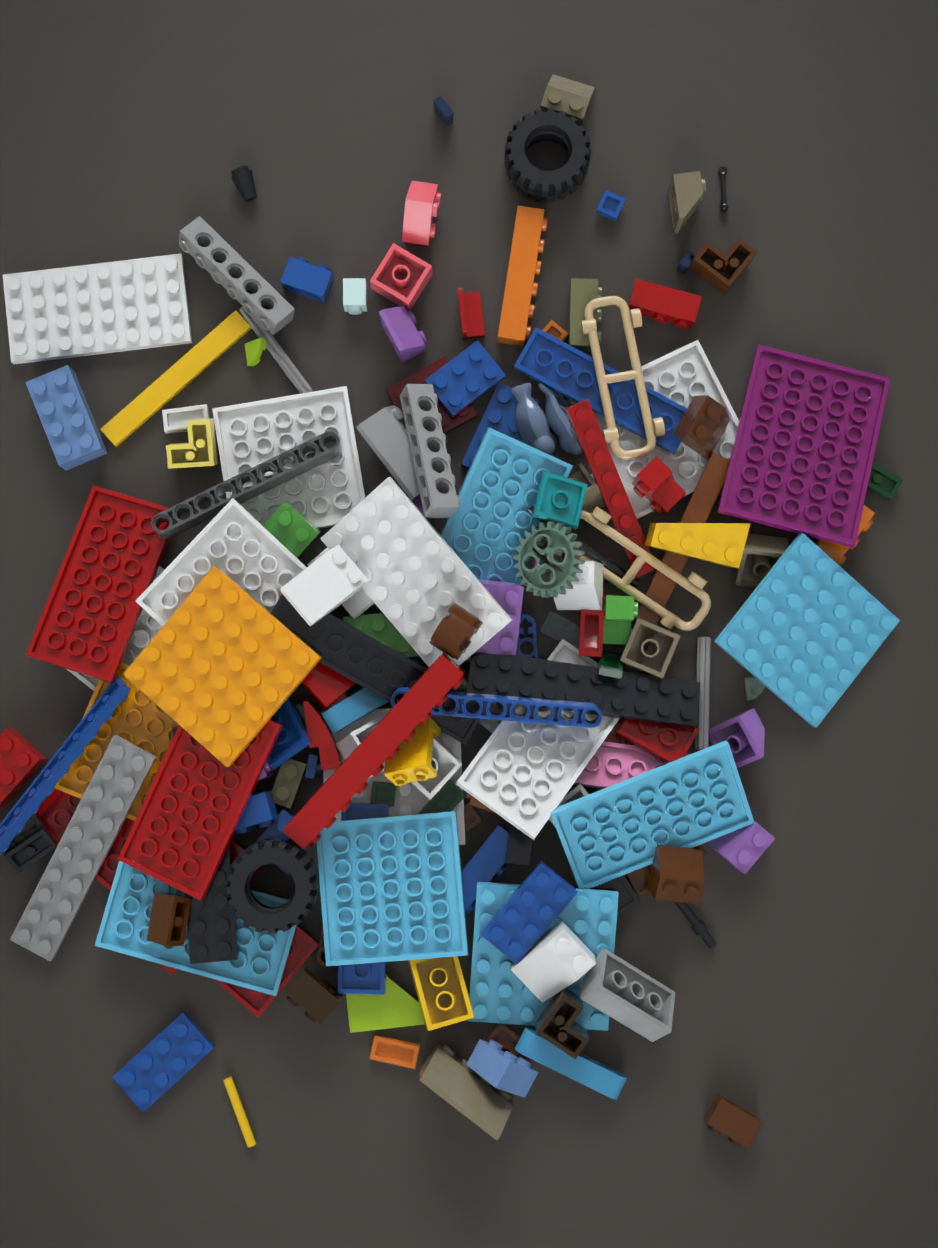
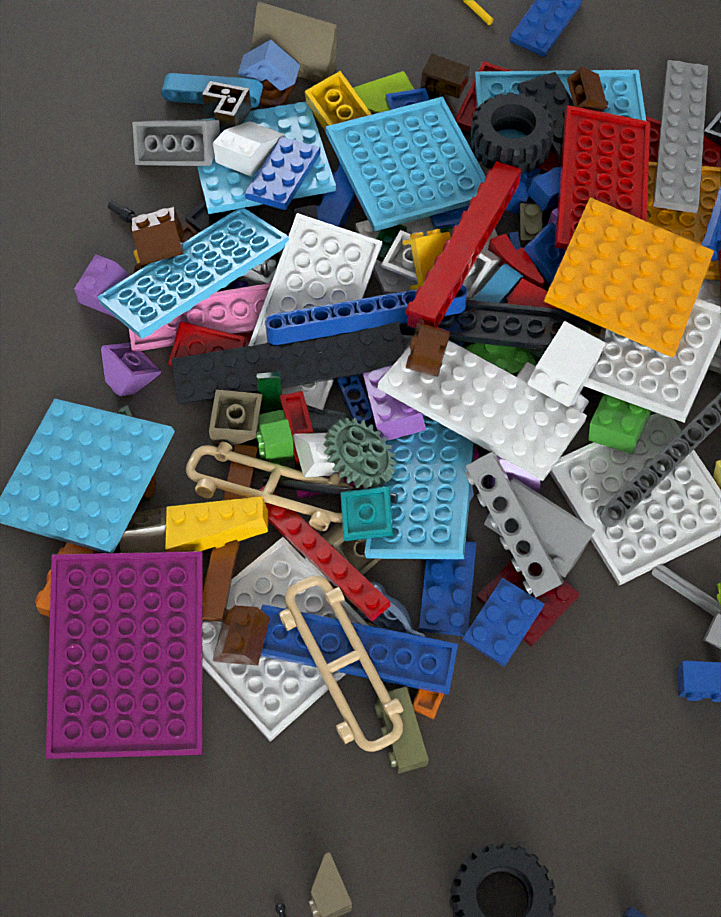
camera: 160 degrees right, 20 degrees down
(355, 295) = (649, 678): light aqua brick -> none
(394, 1051) = (362, 69): orange tile -> none
(401, 277) = (610, 708): coral brick -> none
(402, 332) = (586, 649): medium lavender slope -> none
(420, 208) = (619, 786): coral brick -> none
(471, 315) = (522, 696): red panel -> none
(520, 276) = (483, 753): orange brick -> none
(532, 421) = (416, 595): sand blue animal -> none
(610, 205) = (410, 866): blue plate -> none
(658, 486) = (270, 563): red brick -> none
(665, 304) = (318, 768): red brick -> none
(685, 262) = (305, 830): dark blue tile -> none
(703, 677) = (174, 409): light grey axle -> none
(723, 269) = (263, 823): reddish brown brick -> none
(733, 1121) = (62, 85): reddish brown brick -> none
(883, 482) = (31, 647): dark green plate -> none

